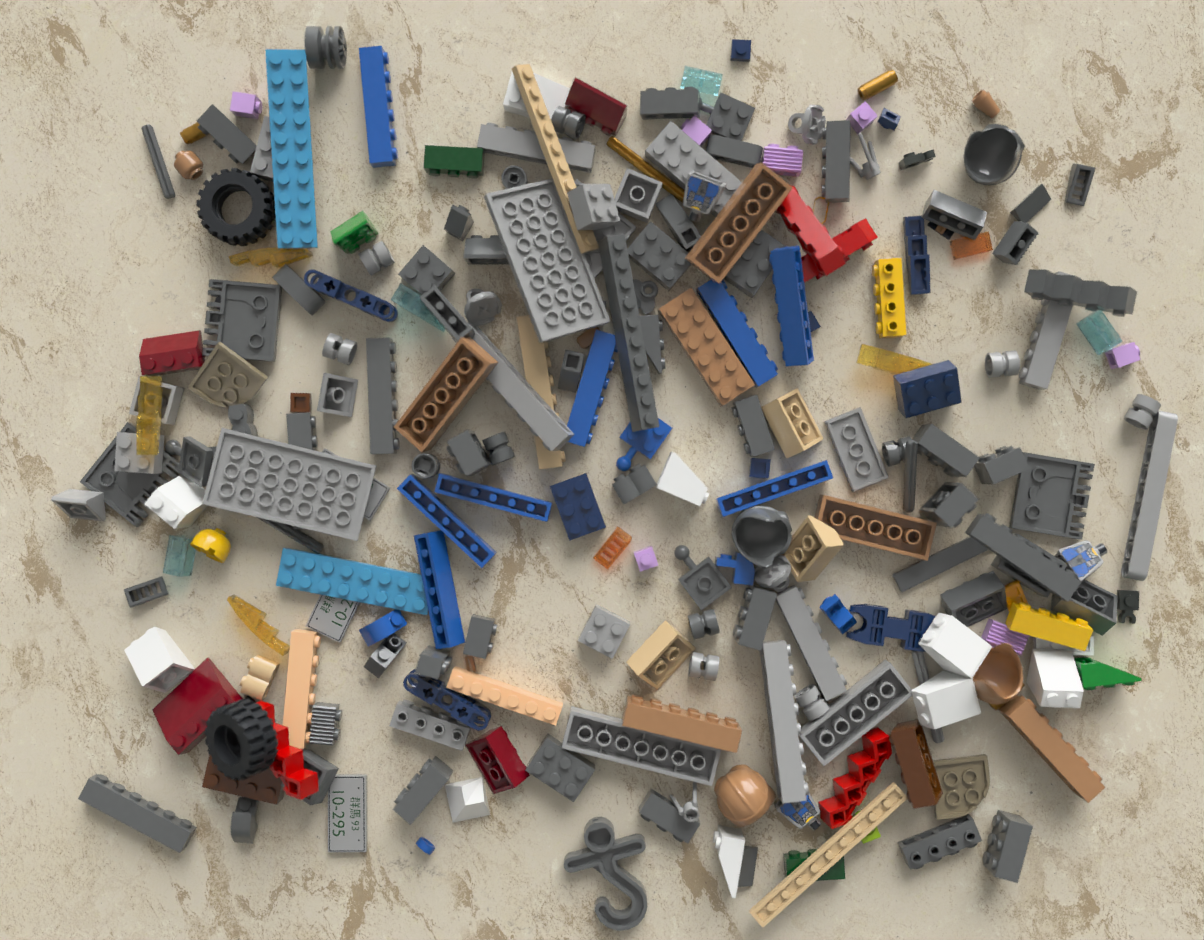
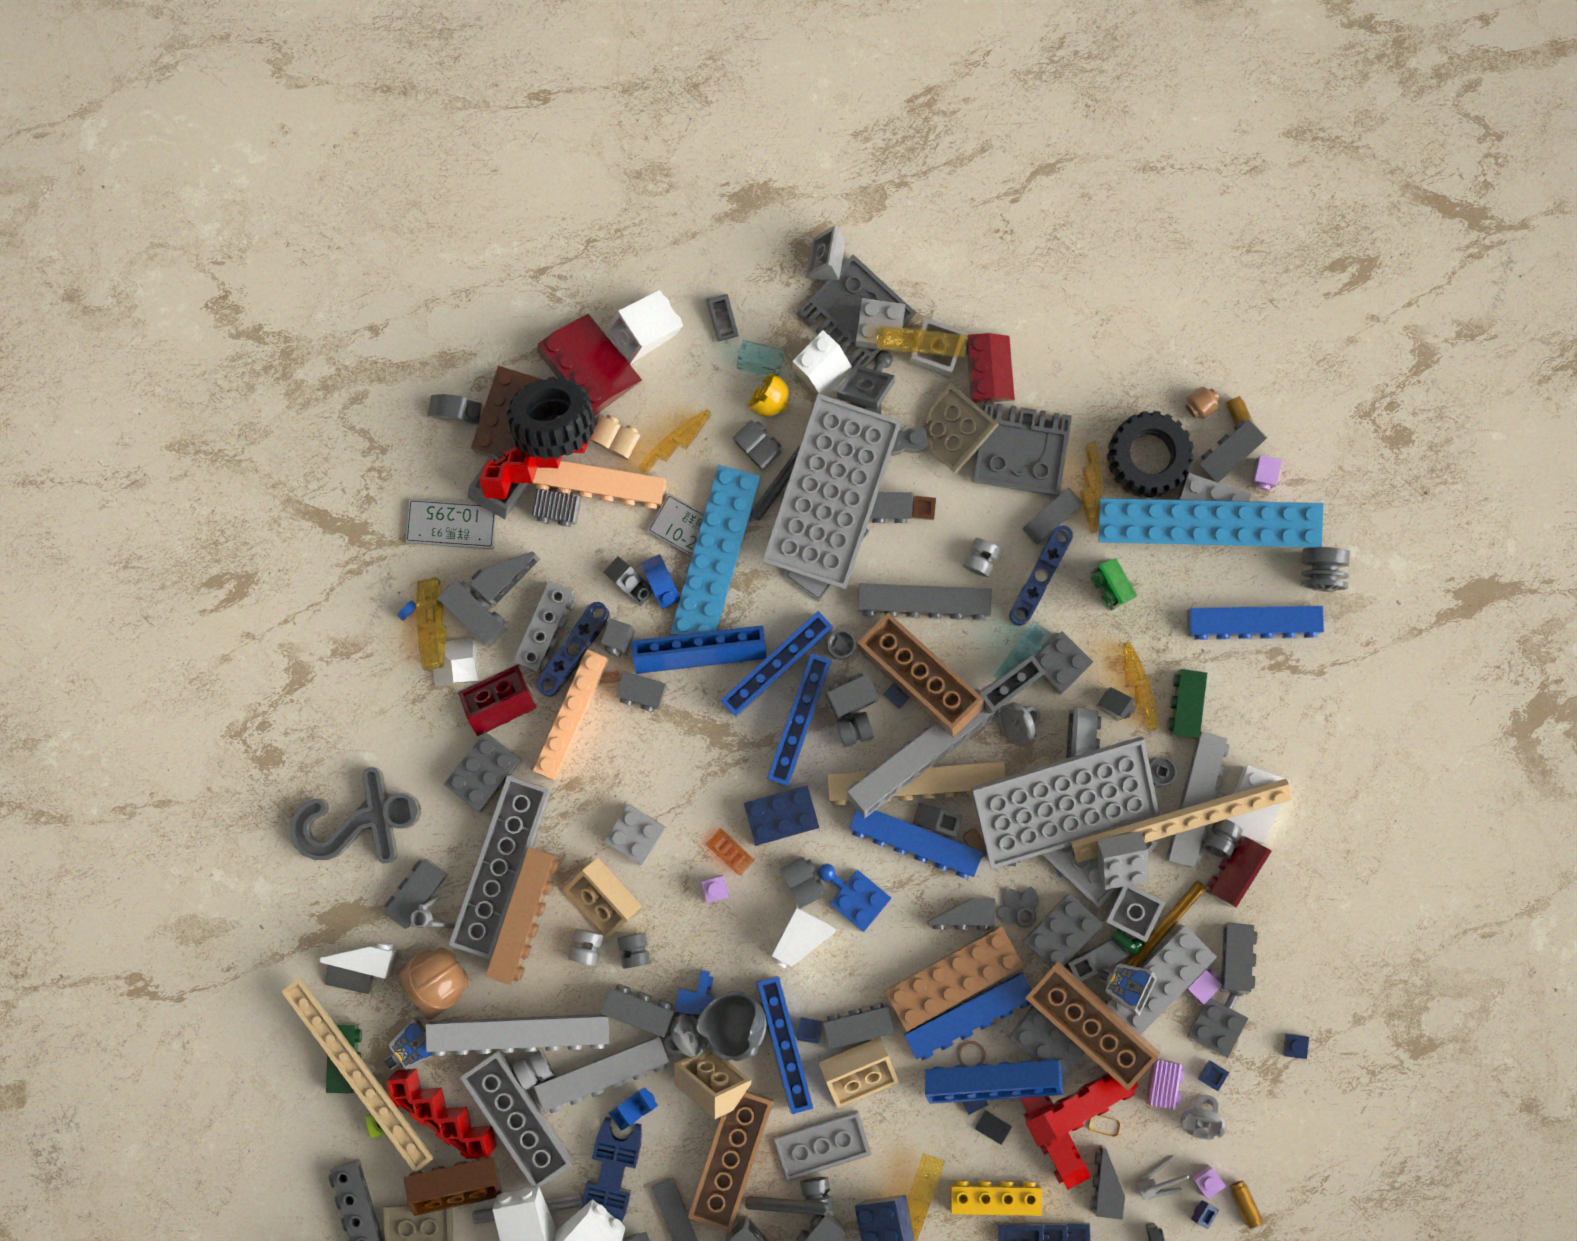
camera: 95 degrees right, 5 degrees down
(137, 812) = (473, 289): dark grey brick -> none
(158, 161) = (1209, 368): dark grey axle -> none
(256, 552) = (757, 444): none -> dark grey brick
(337, 395) = (929, 551): light grey slope -> none
(376, 258) = (1082, 607): light grey wheel -> none
(388, 765) = (500, 578): none -> dark grey slope
(435, 206) = (1136, 677): none -> clear yellow slope
(441, 824) = (429, 624): none -> clear yellow slope
(467, 414) = (896, 696): none -> dark blue plate
(628, 332) = (976, 889): dark grey brick -> none
(667, 195) = (1131, 946): none -> dark green arm
(703, 580) = (684, 954): dark grey plate -> none
(704, 80) = (1262, 997): clear light blue hinge -> none
(734, 151) = (1178, 1029): dark grey beam -> none
(758, 328) = (971, 1042): none -> medium nougat piece
(771, 119) = (1213, 1075): none -> dark blue plate
(829, 305) = (993, 1127): none -> black piece
(837, 161) = (1158, 1149): dark grey brick -> none
(878, 202) = (1109, 1195): none -> dark grey slope

